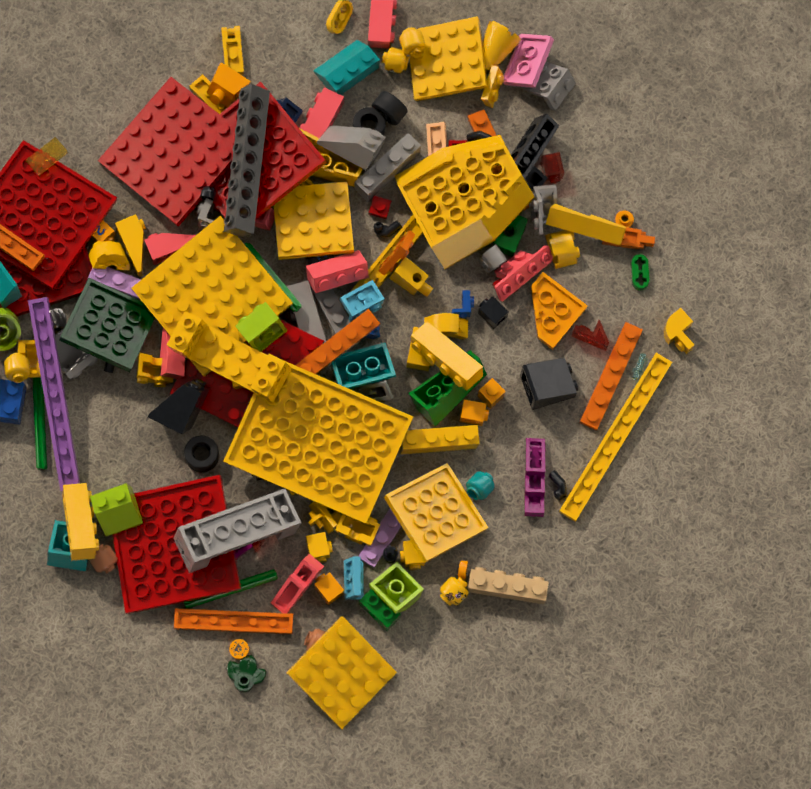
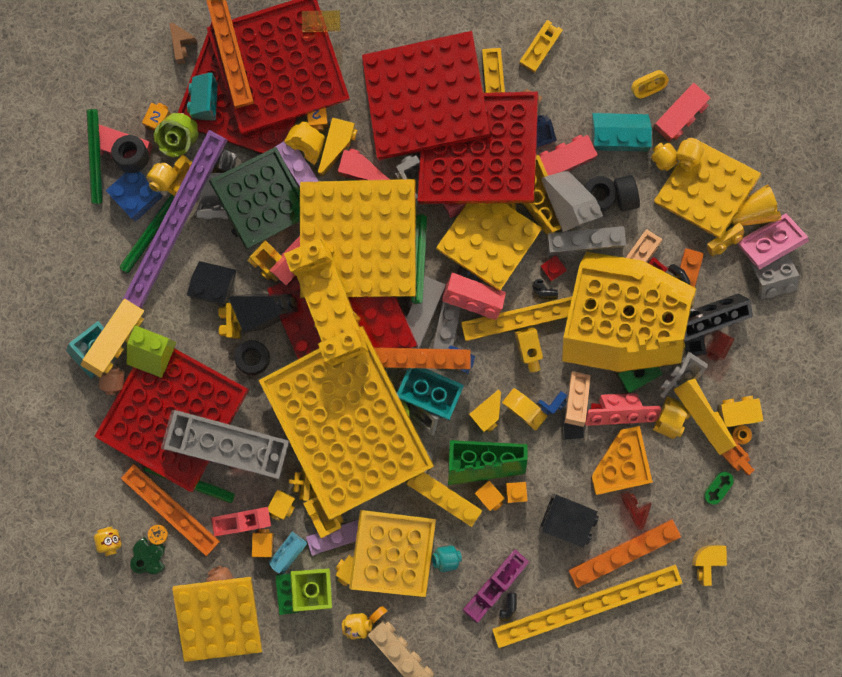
camera: 45 degrees right, 10 degrees up
(123, 423) = (211, 283): none -> black slope
(156, 432) = (232, 328): none -> yellow hips
(203, 684) = (107, 541): none -> yellow head
(208, 193) = (421, 155): black hinge -> none
(226, 85) = (510, 73): light orange torso -> none
(246, 161) = (480, 149): dark grey brick -> none
(261, 327) = (371, 296): lime slope -> none
(361, 299) = (474, 335): medium azure bracket -> none
(390, 554) = (330, 557): black axle -> none
(400, 251) = (534, 321): orange plate -> none
(446, 356) = (501, 437): yellow brick -> none
(479, 286) = (577, 399): none -> light nougat plate
(492, 259) = (607, 385): light grey piece -> none
(610, 202) = (740, 412): none -> yellow brick
(638, 369) = (649, 566): clear light blue piece -> none

